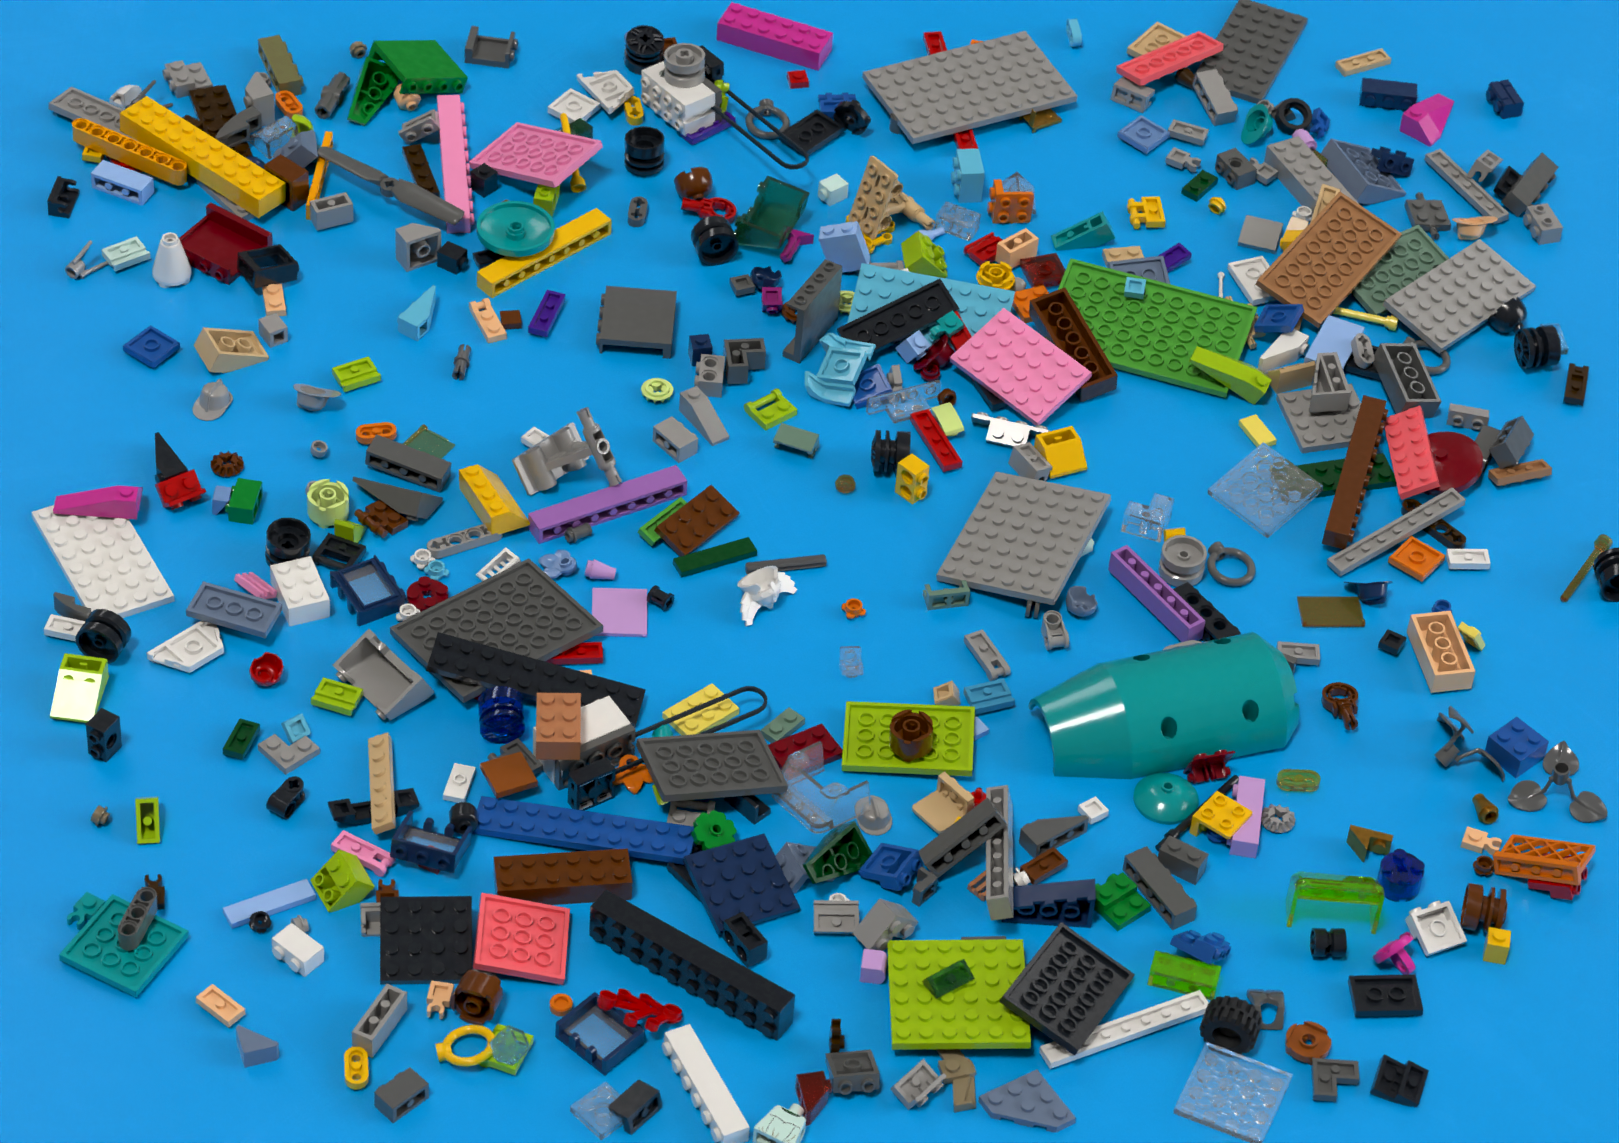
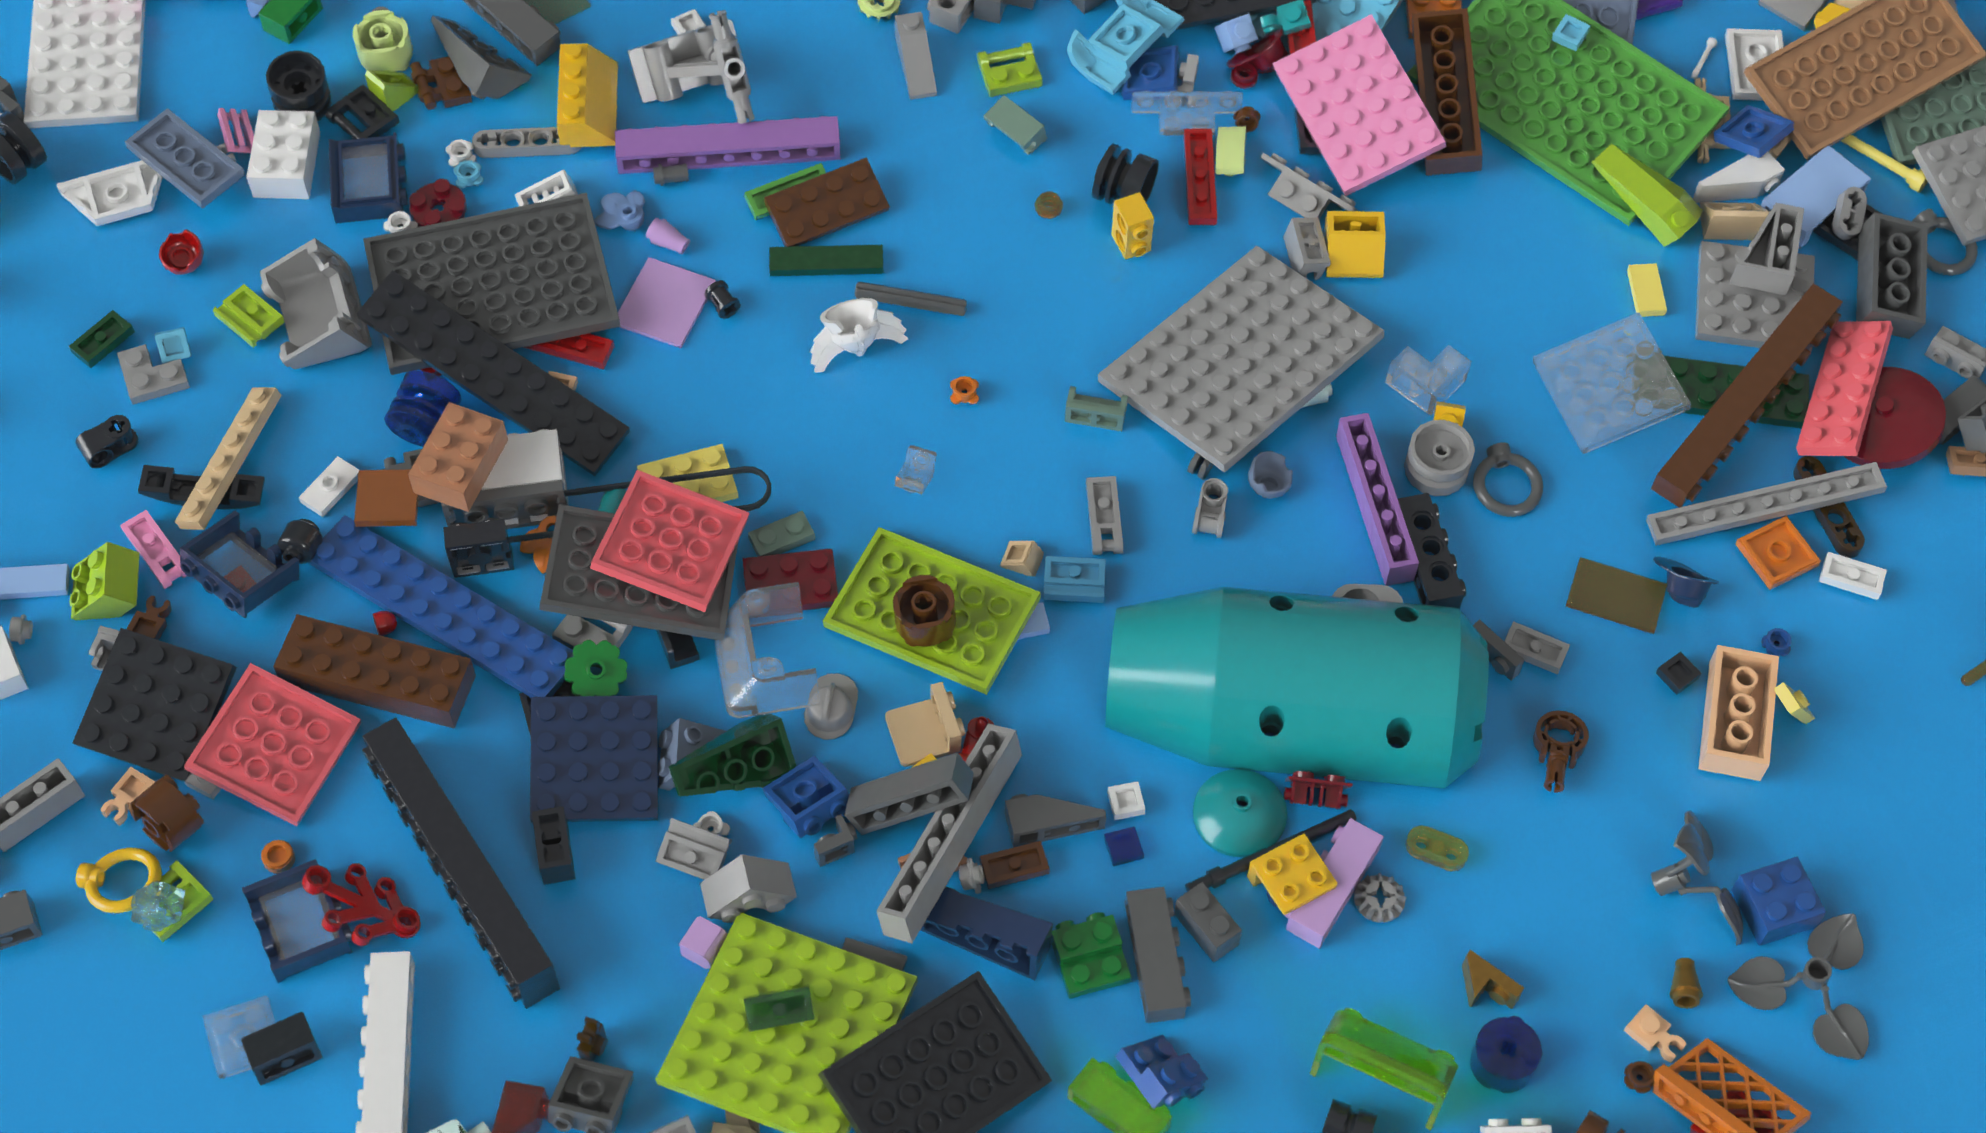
camera: 25 degrees right, 15 degrees up
(547, 847) = (384, 622): none -> red hinge
(675, 439) = (863, 78): light grey brick -> none
(724, 739) = (670, 541): none -> coral plate
(1104, 837) = (1124, 846): none -> clear blue tile

